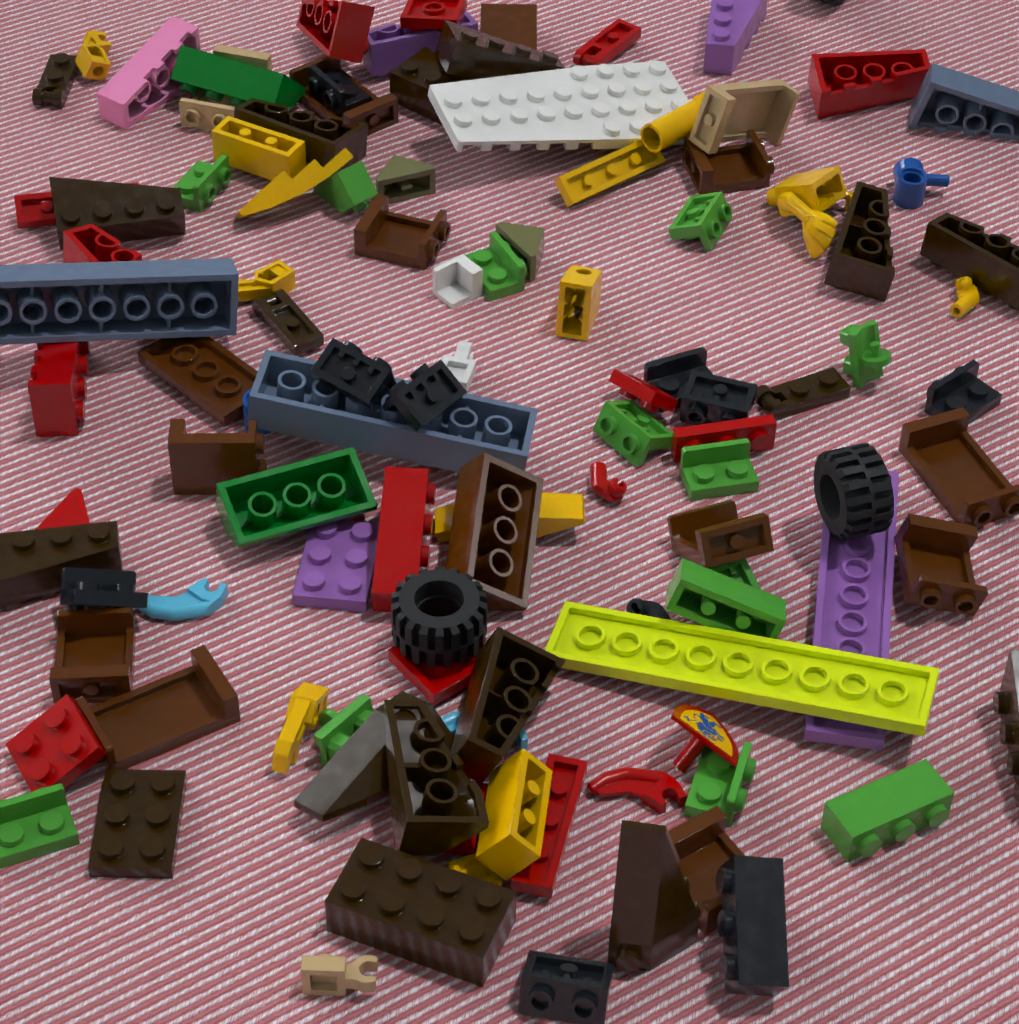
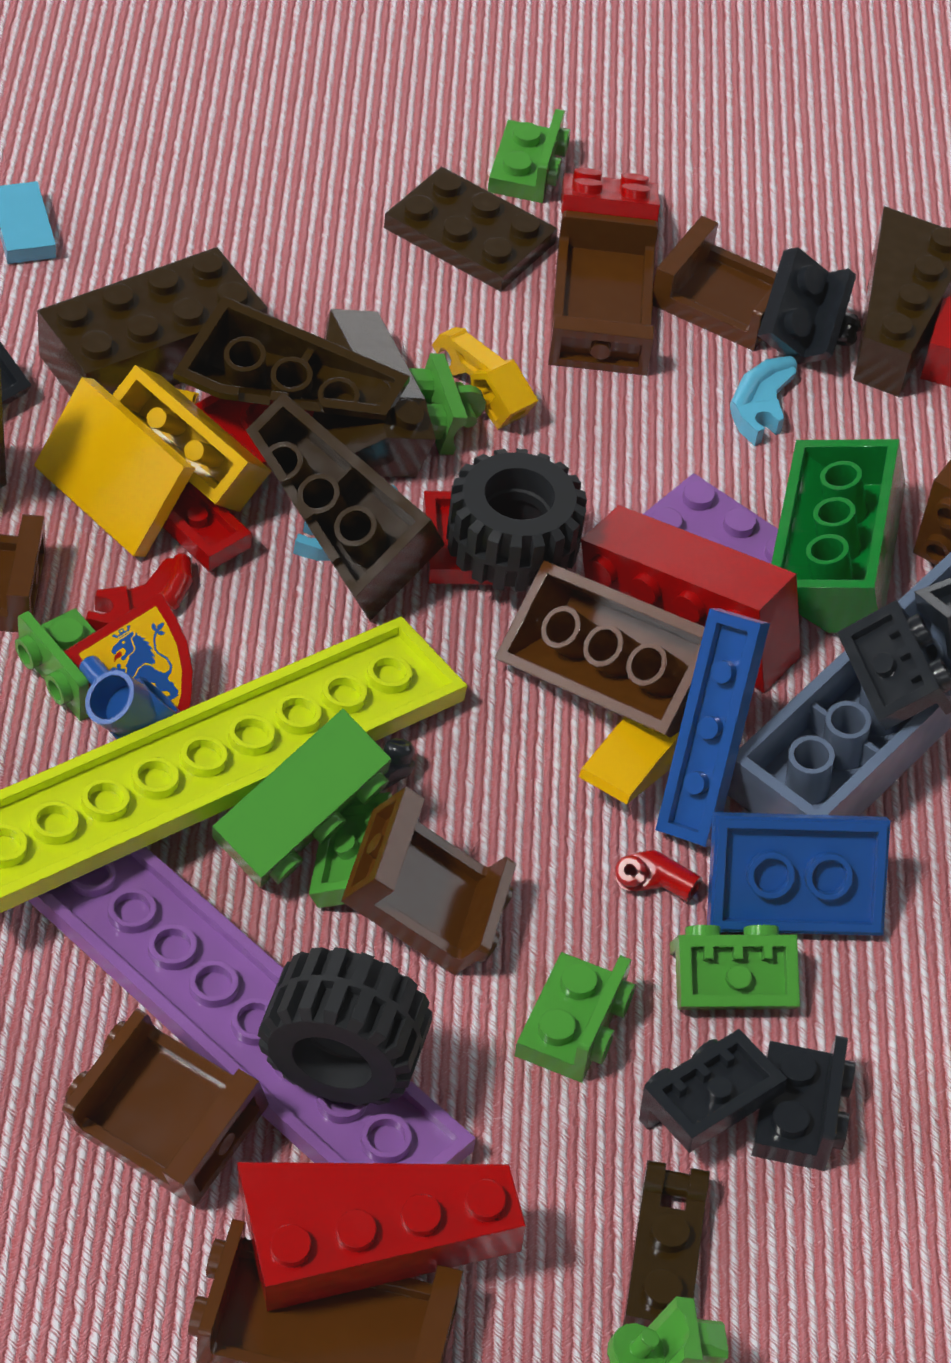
camera: 120 degrees right, 5 degrees up
(332, 976) = (150, 244): tan plate -> none
(517, 449) = (712, 725): none -> blue plate
(565, 418) = (799, 872): none -> blue tile
(572, 839) = (114, 467): none -> yellow tile
(635, 388) = (800, 1014): red plate -> none
(742, 713) = (121, 701): none -> blue piece
(758, 429) = (628, 1055): red plate -> none
(920, 455) = (371, 1224): none -> red wedge

